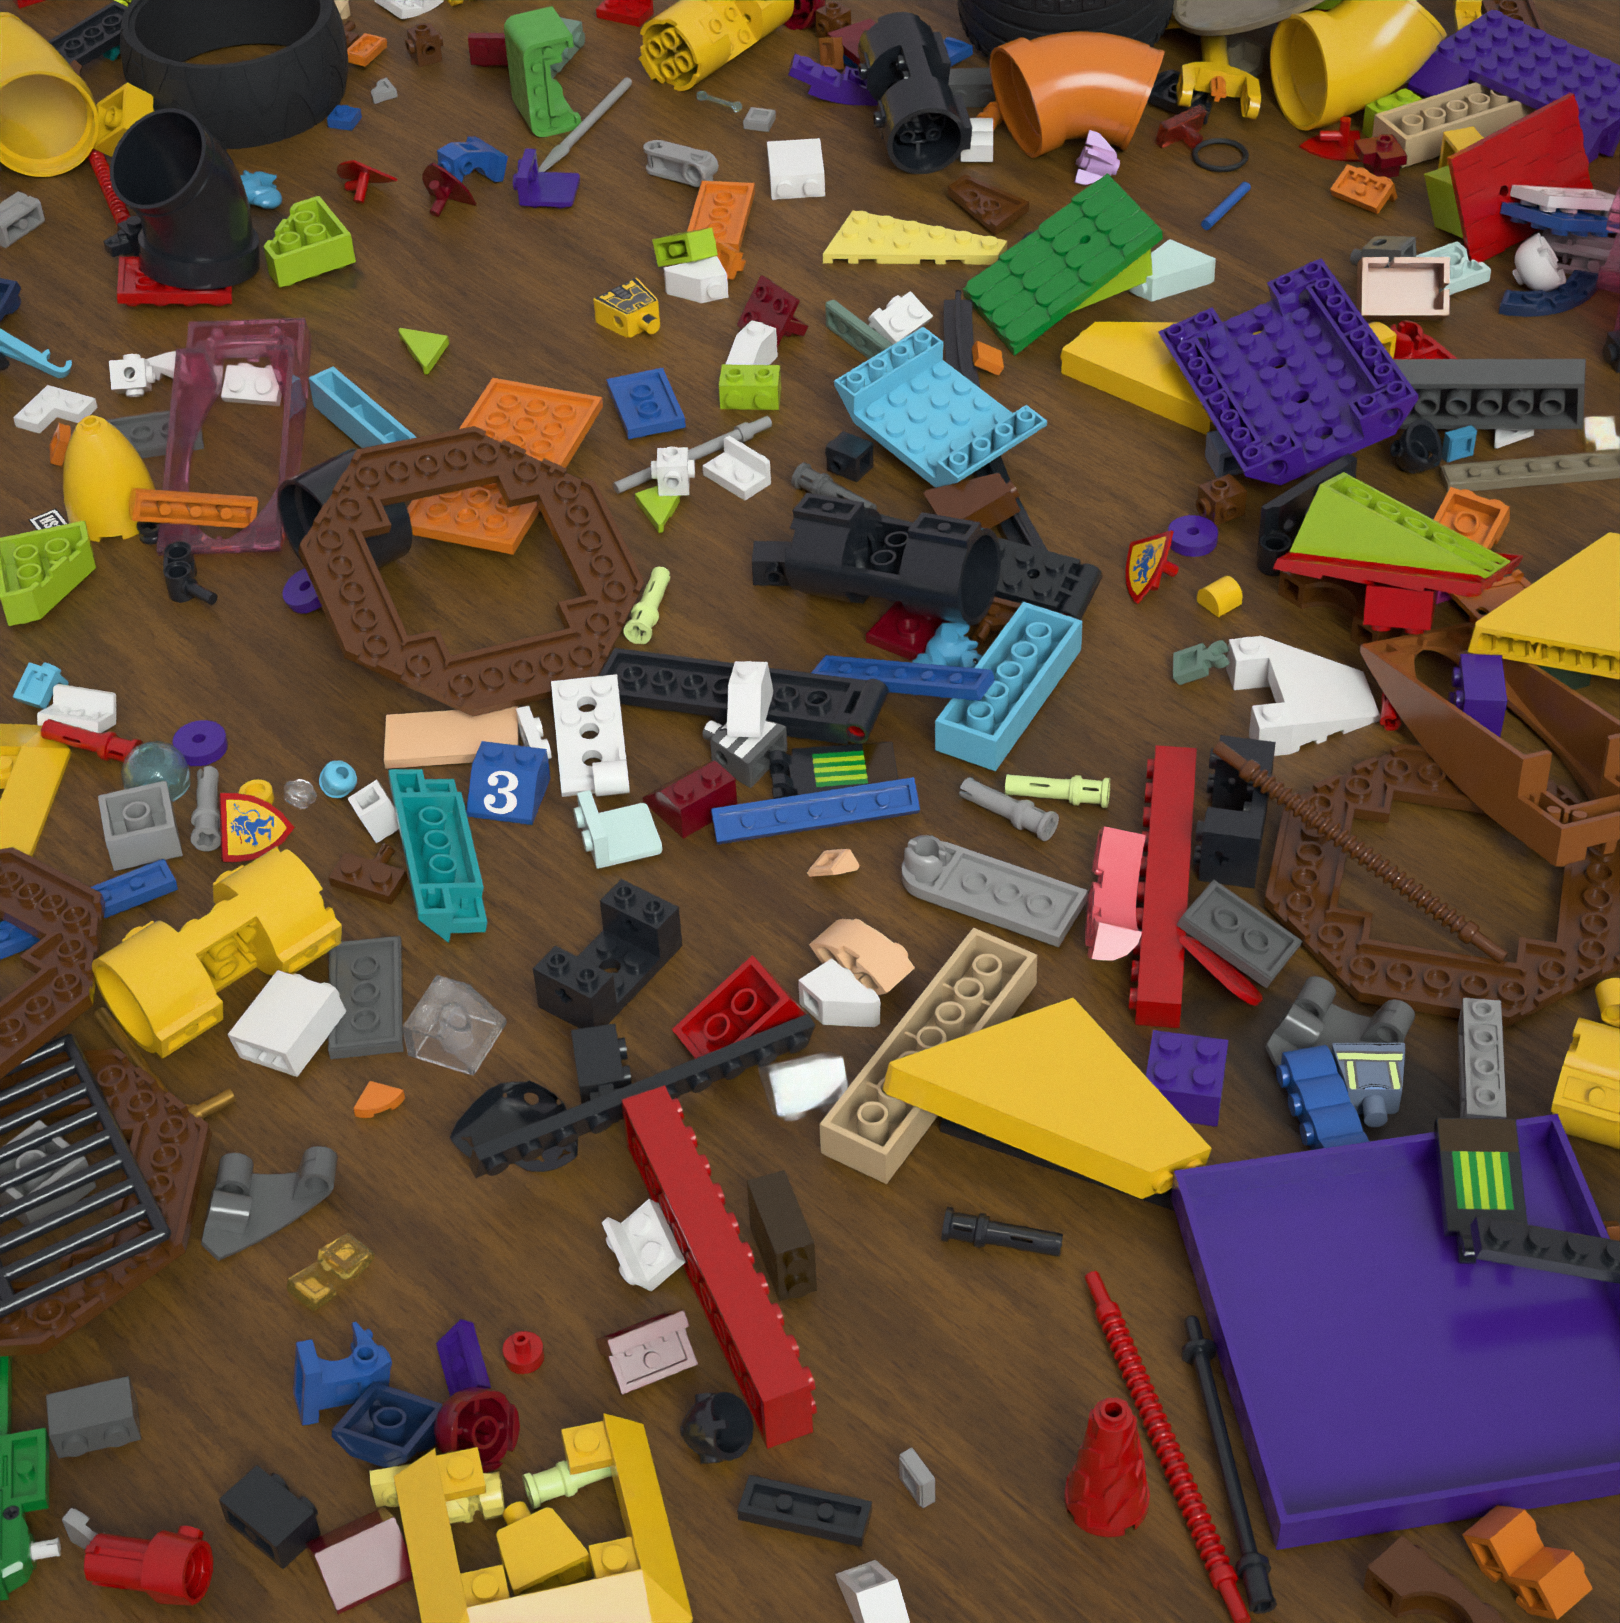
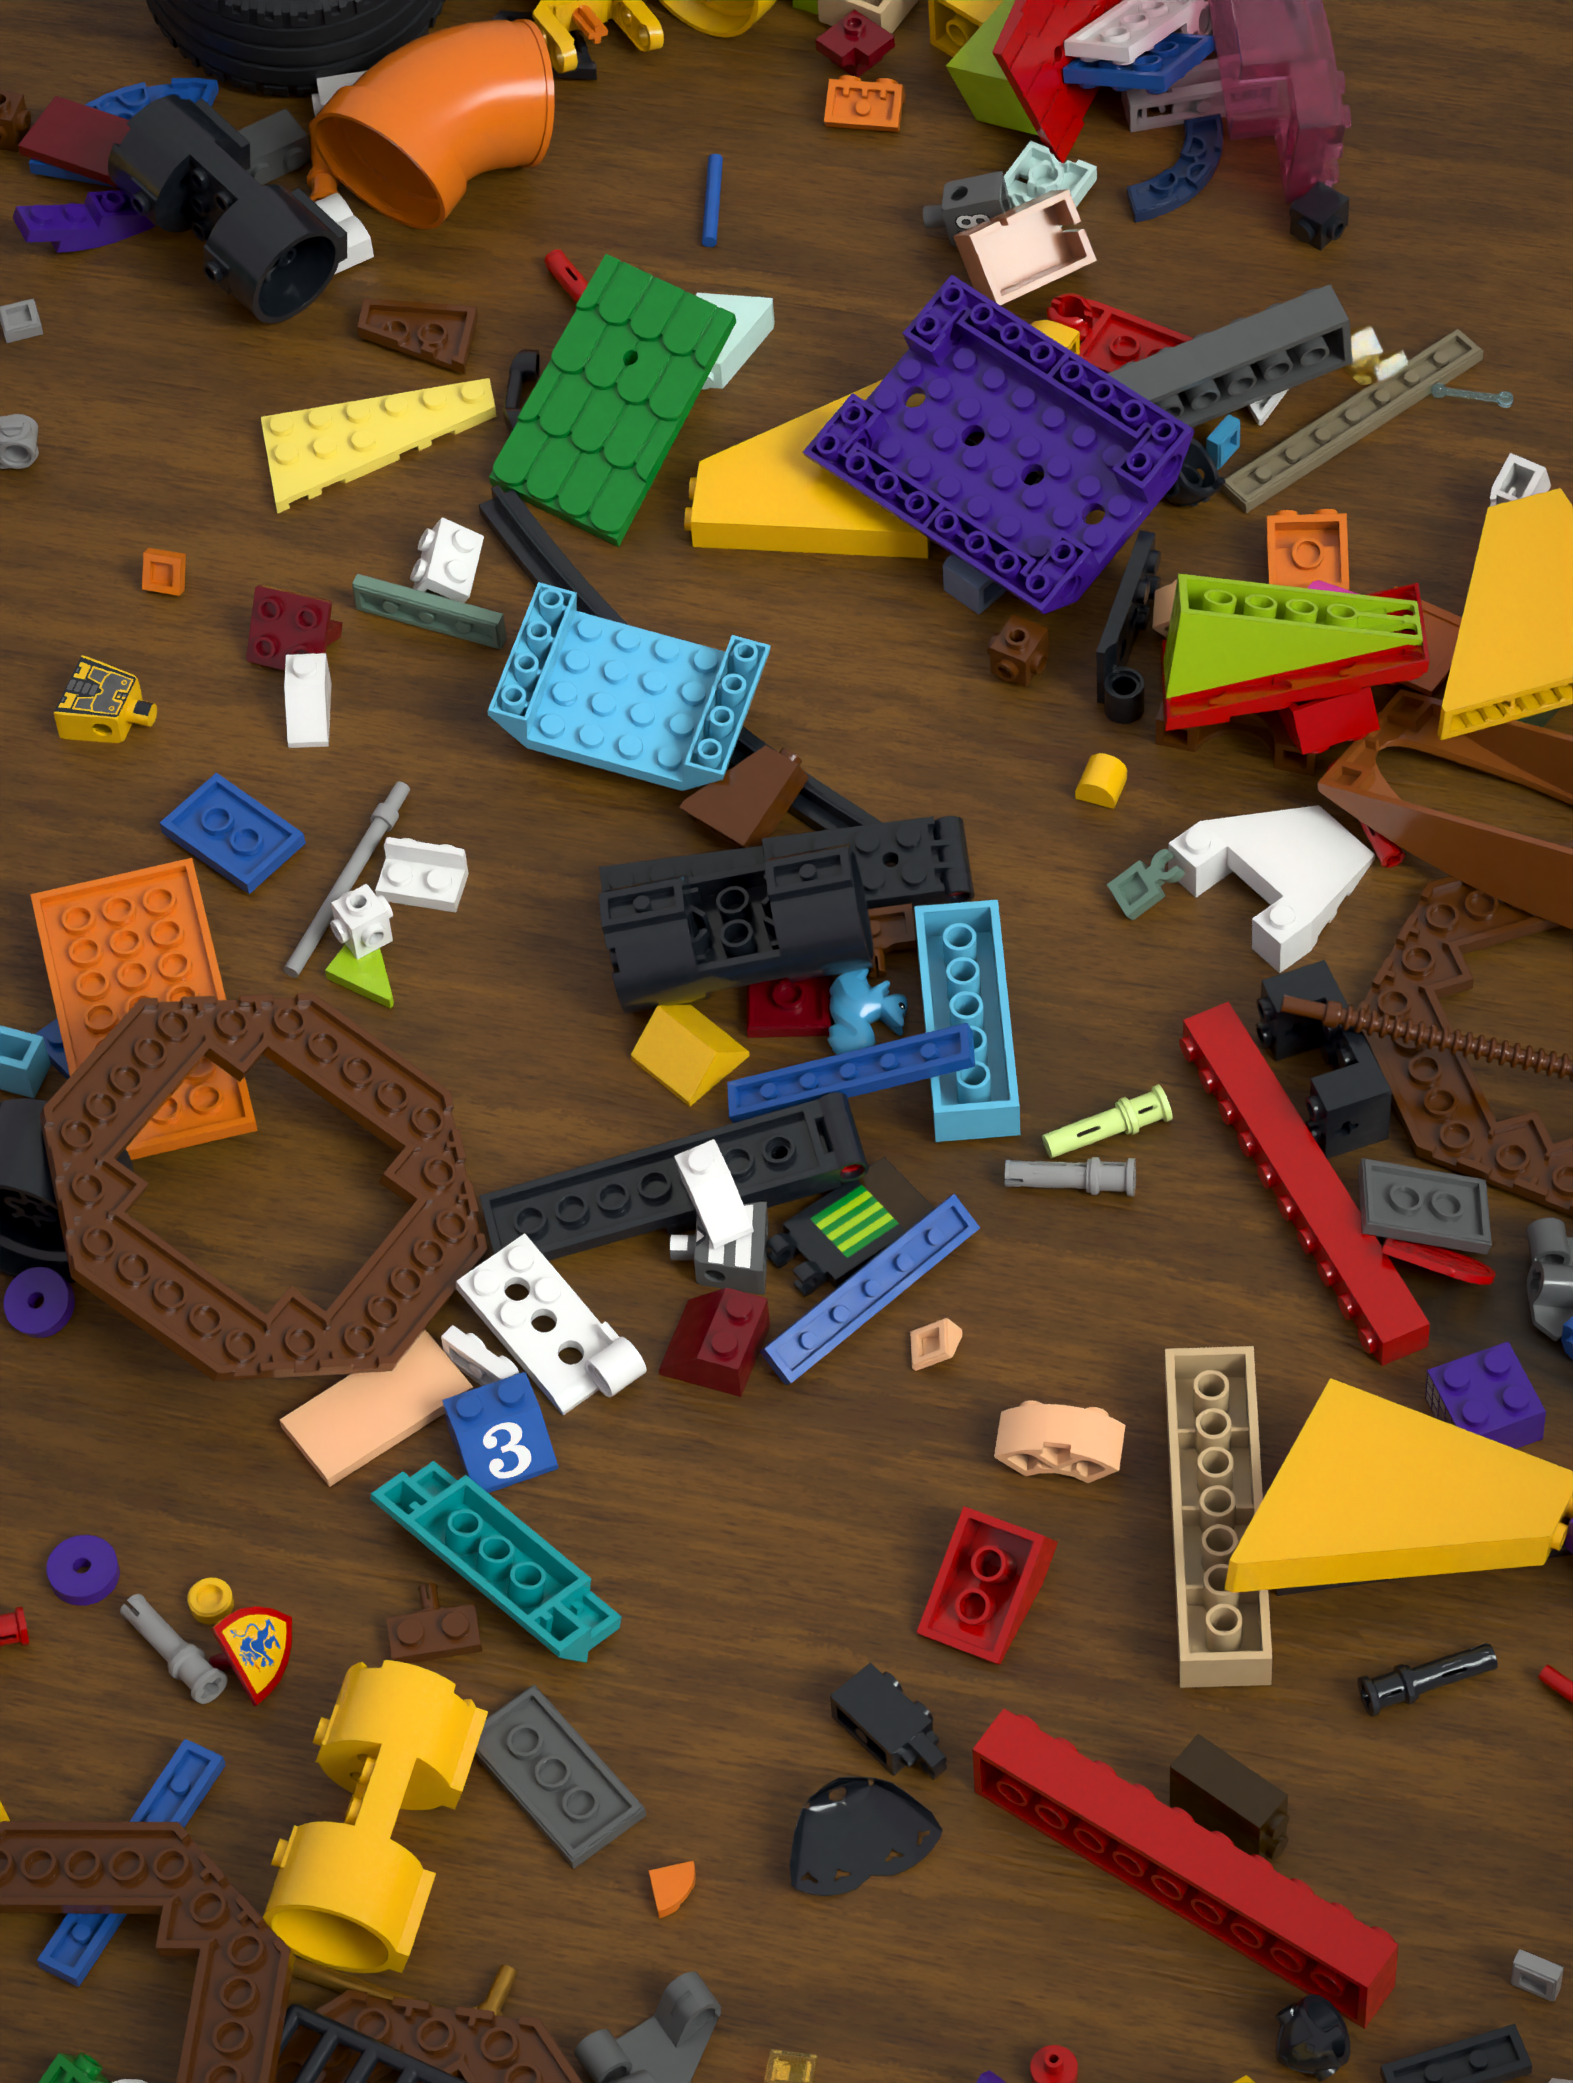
camera: 30 degrees left, 10 degrees up
(139, 825) = (125, 1713): light grey brick -> none
(156, 763) = (70, 1639): clear light blue cylinder -> none
(287, 1022) = (508, 1855): white brick -> none
(299, 793) = (267, 1573): clear plate -> none
(337, 779) = (298, 1531): medium azure piece -> none
(375, 810) = (377, 1546): white slope -> none
(452, 1026) = (689, 1759): clear slope -> none
(601, 1112) = (982, 1712): black plate -> none
(617, 833) = (672, 1429): light aqua bracket -> none
(636, 939) = (795, 1551): black plate -> none
(644, 1246) = (1091, 1889): white bracket -> none
(645, 613) = (473, 1127): yellowish green pin -> none
(648, 1350) = (1180, 1993): bracket -> none
(685, 247) = (108, 579): lime brick -> none
(697, 280) = (153, 618): white slope -> none
(724, 209) = (97, 503): orange plate -> none
(750, 387) = (345, 749): lime brick -> none
(769, 563) = (570, 987): black brick -> none
(796, 169) = (139, 384): white brick -> none
(804, 1084) = (1110, 1618): clear slope -> none
(818, 629) = (686, 1051): none -> yellow slope
(823, 485) = (543, 851): dark grey pin -> none
(831, 52) = (43, 178): dark orange bracket -> none
(838, 997) = (1069, 1501): white slope -> none
(849, 456) = (542, 793): black brick -> none
(987, 358) = (598, 569): orange tile -> none
(991, 889) = (1129, 1287): light grey plate -> none
(1096, 160) = (515, 204): lavender brick -> none
(1112, 899) = (1266, 1236): coral brick -> none
(1146, 563) = (998, 780): shield -> none
(1182, 126) = (581, 102): clear red tile -> none
(1193, 535) = (1011, 697): dark purple piece -> none
(1220, 168) = (650, 146): black tyre -> none
(1334, 144) = (776, 42): red shield -> none
(1480, 689) = (1477, 783): dark purple brick -> none
(1537, 265) = (1148, 139): white cylinder -> none

